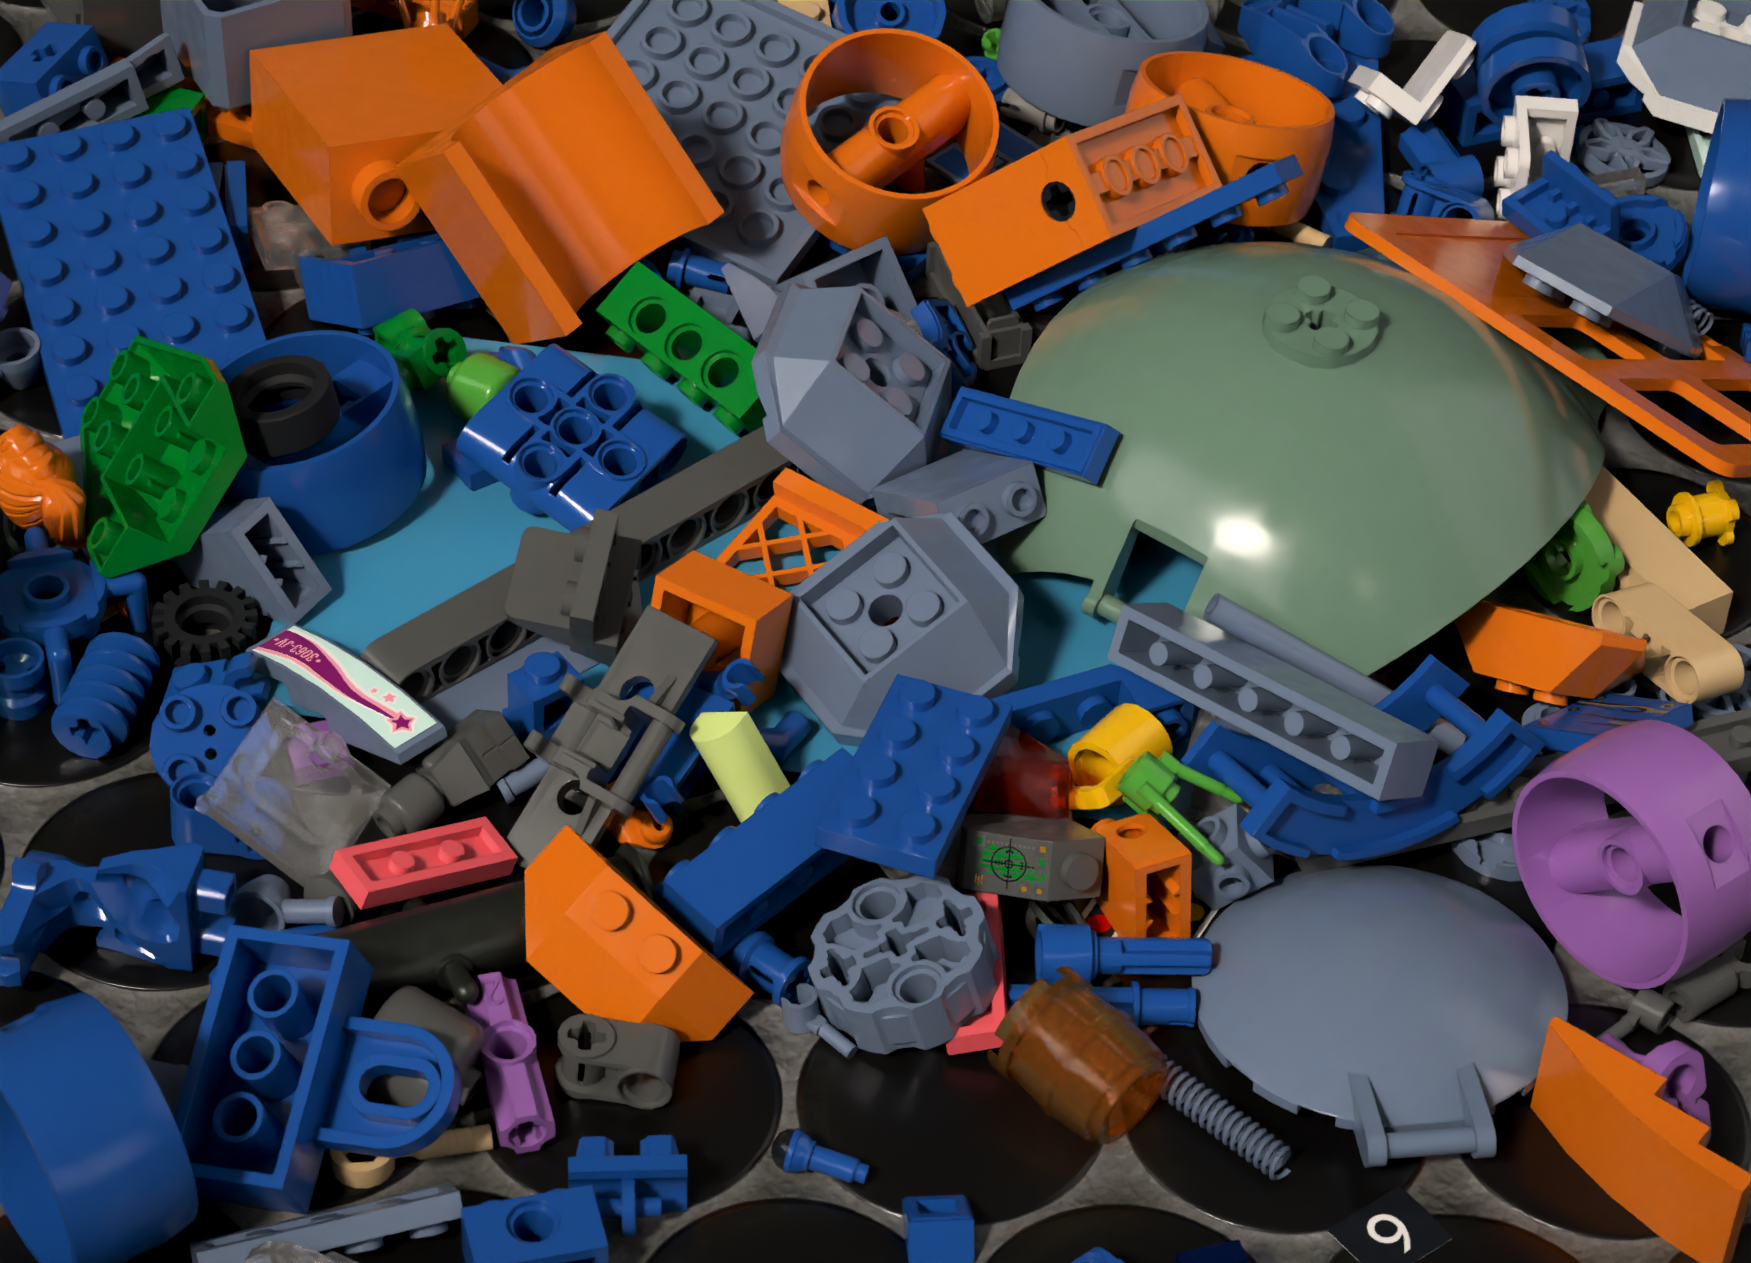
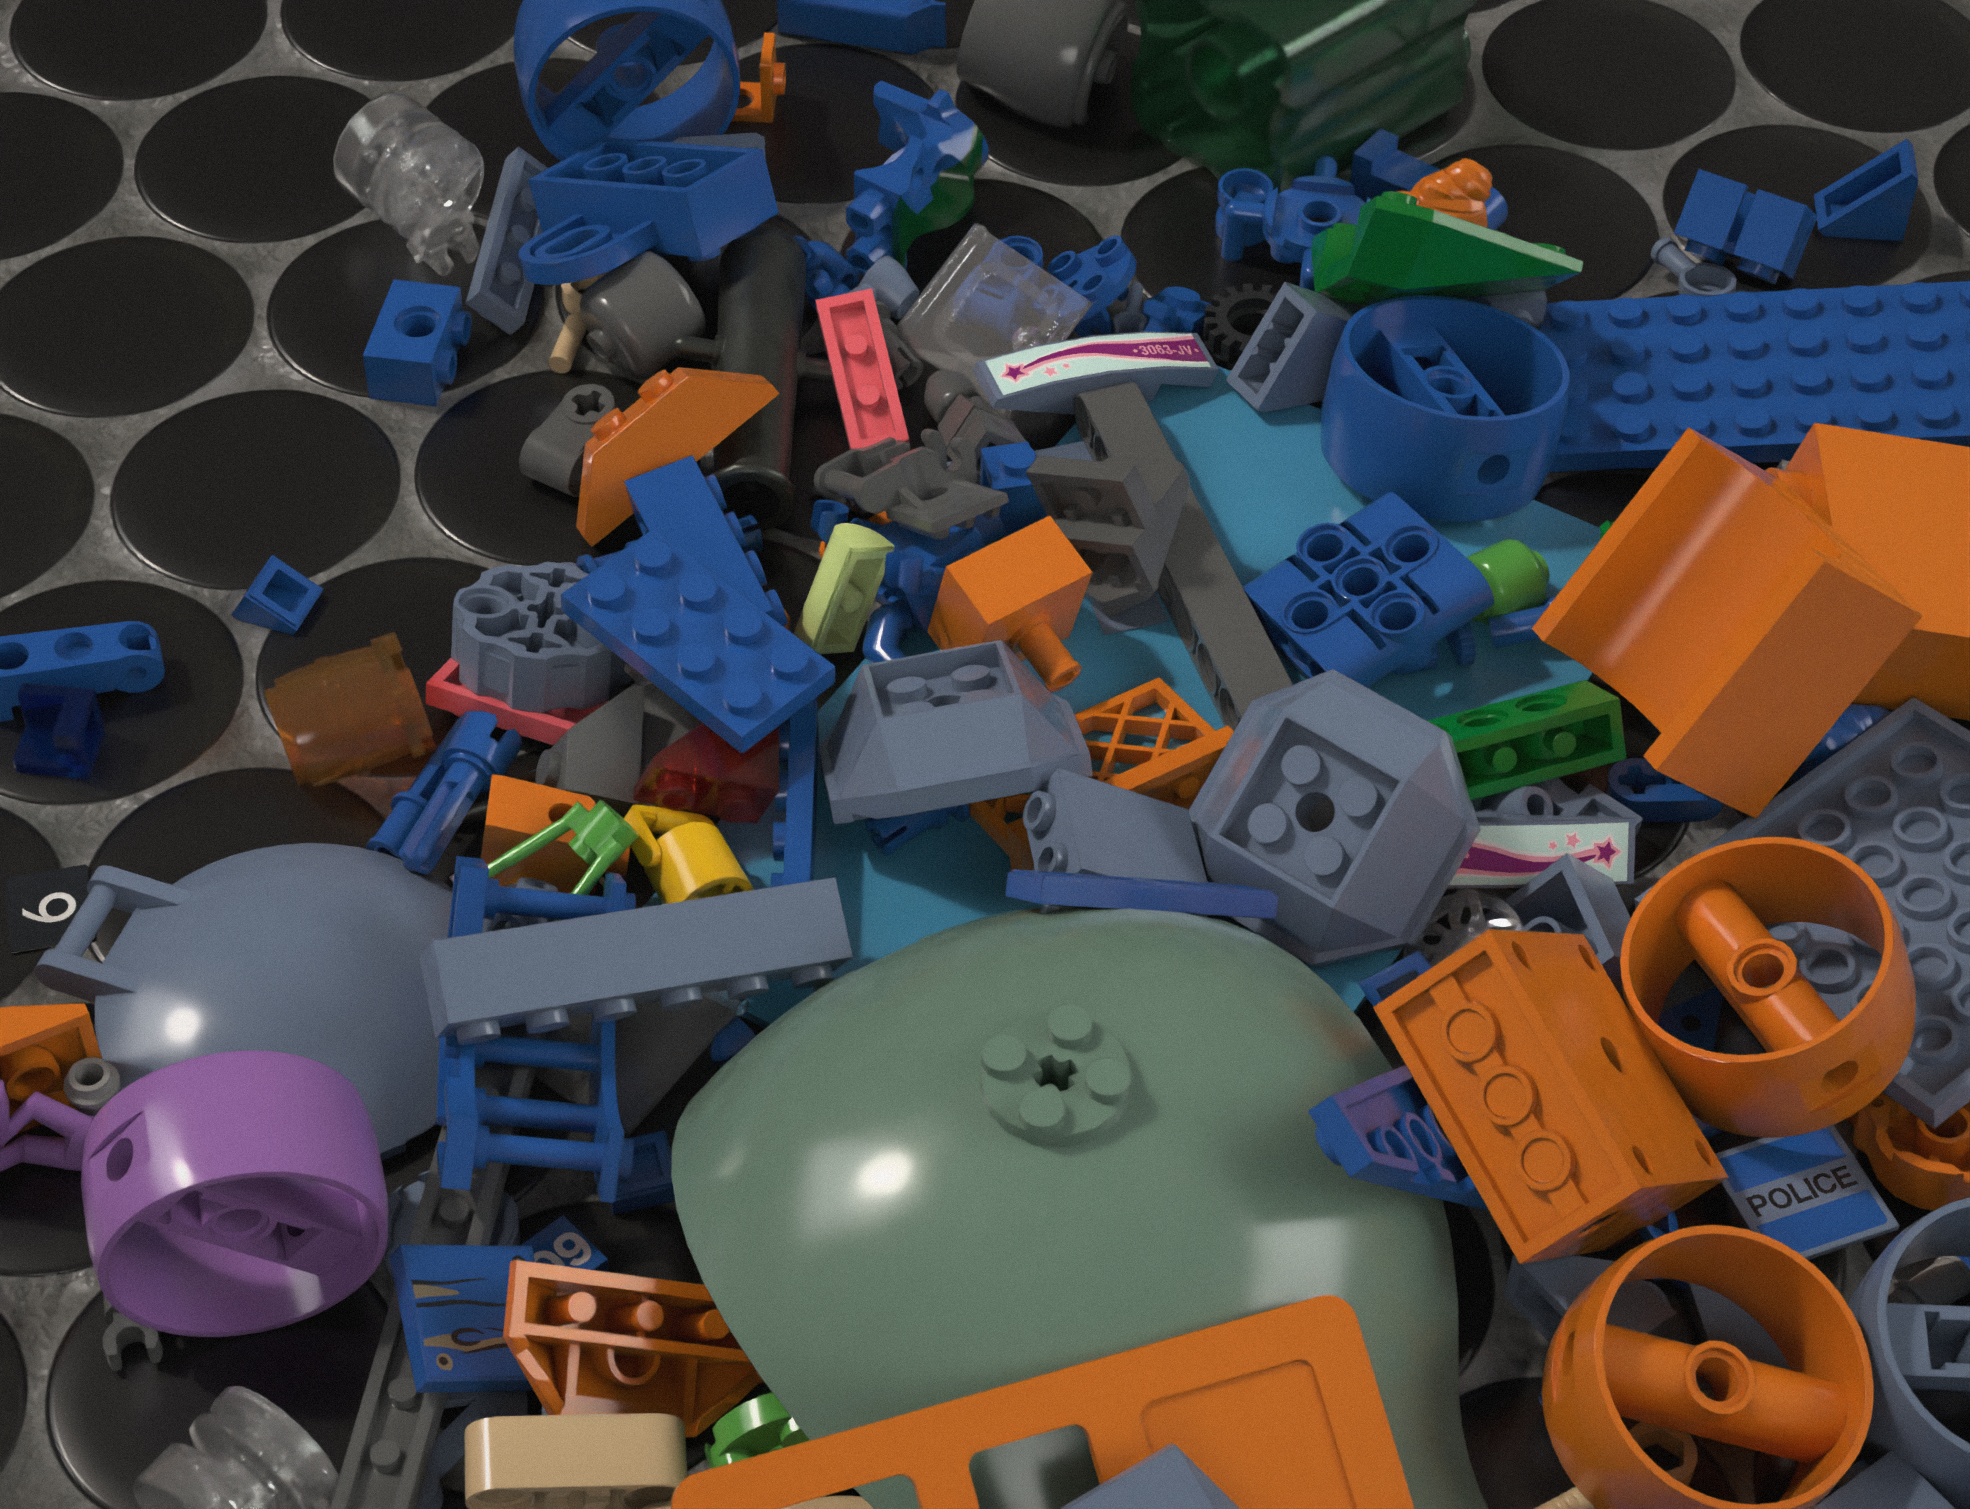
camera: 115 degrees right, 5 degrees up
(105, 694) = (1193, 250): blue piece -> none
(291, 428) = (1430, 345): black tyre -> none
(427, 354) = (1554, 531): green connector -> none
(511, 1066) = (558, 370): medium lavender piece -> none
(632, 1183) = (436, 411): blue hips -> none
(696, 271) = (1689, 835): blue pin -> none
(797, 1152) = (411, 533): blue piece -> none
(1226, 1125) = (195, 833): sand blue piece -> none
(1304, 656) = (687, 1074): sand blue piece -> none

